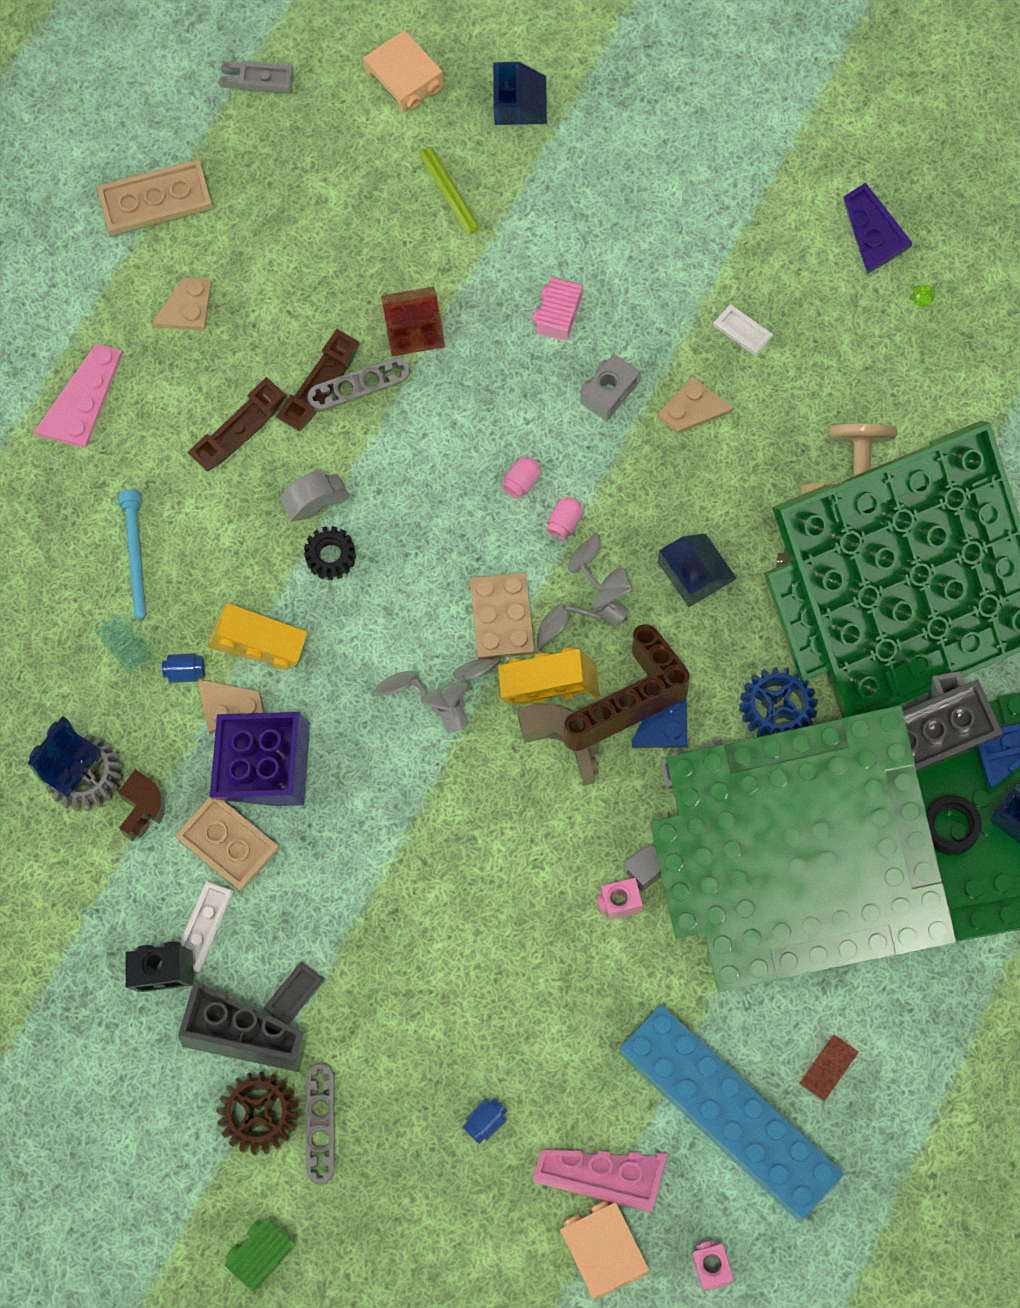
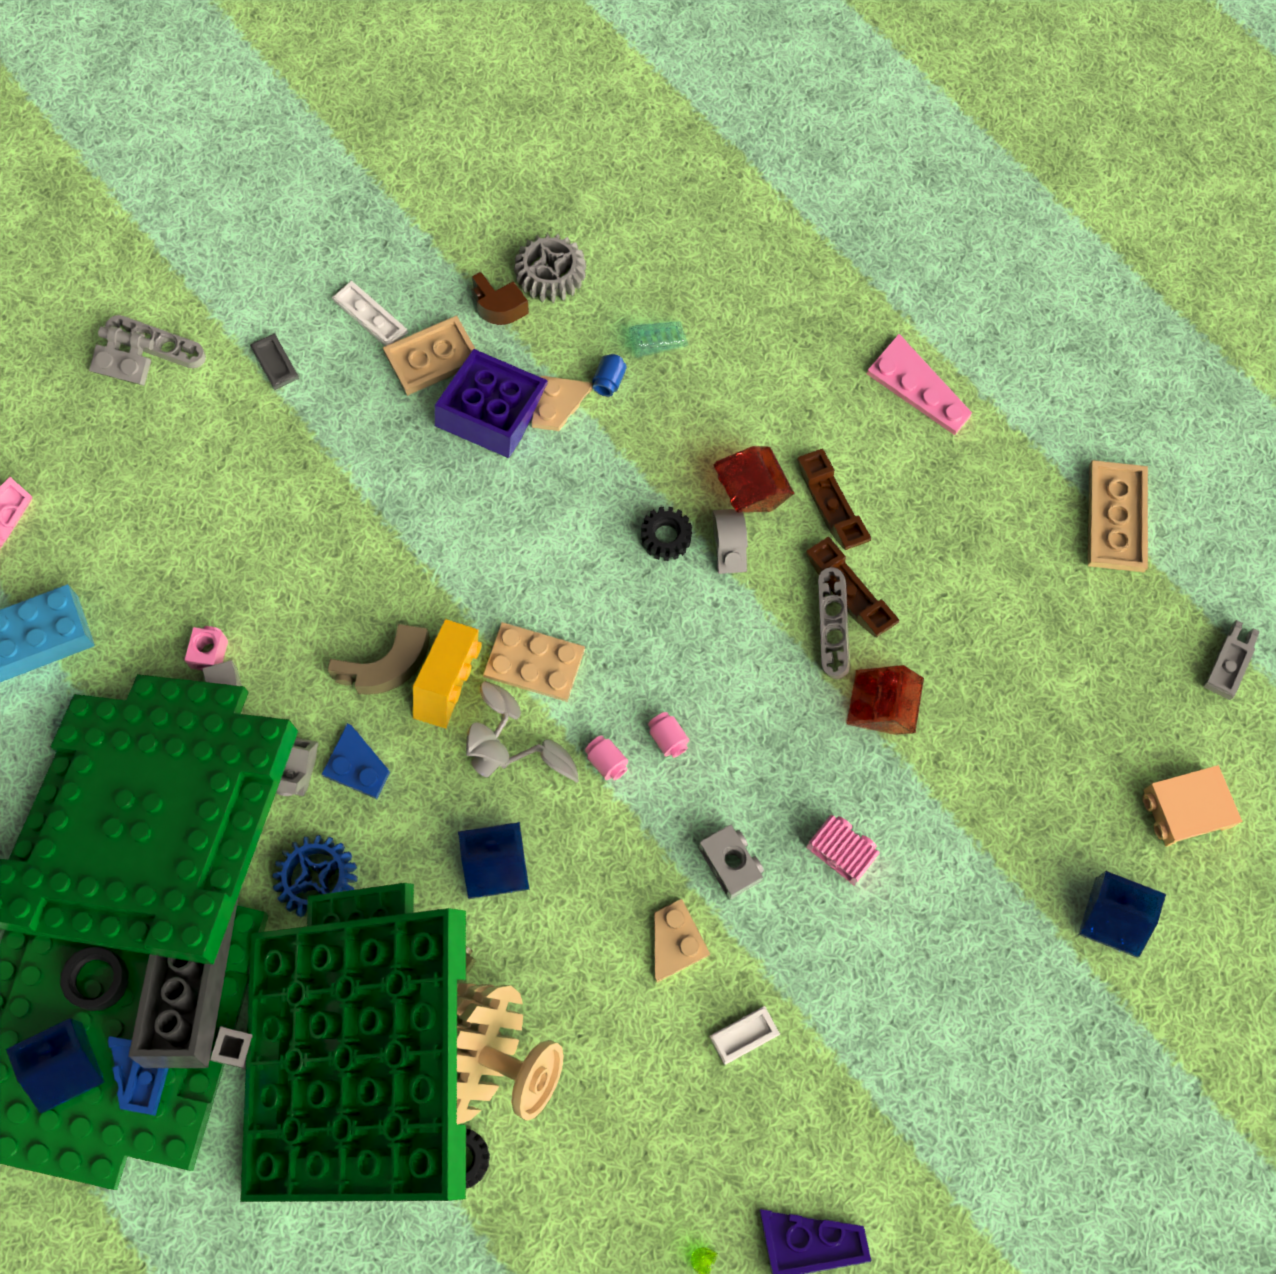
camera: 105 degrees right, 0 degrees up
(63, 758) = (559, 242): clear blue bracket -> none
(129, 502) = (791, 386): medium azure piece -> none
(174, 972) = (345, 264): black brick -> none
(186, 306) = (984, 505): tan wing -> none
(238, 1031) = (260, 303): dark grey wedge -> none
(249, 492) = (754, 480): none -> clear red slope
(249, 1124) = (174, 307): reddish brown gear -> none
(257, 637) = (605, 438): yellow wedge -> none
(259, 1254) = (77, 260): bright green brick -> none
(361, 1144) = (121, 364): none -> light grey plate
(444, 699) = (450, 547): light grey plant -> none
(449, 190) = (1028, 798): lime axle -> none
(485, 1120) = (81, 462): blue brick -> none
(663, 671) = (382, 737): reddish brown beam -> none

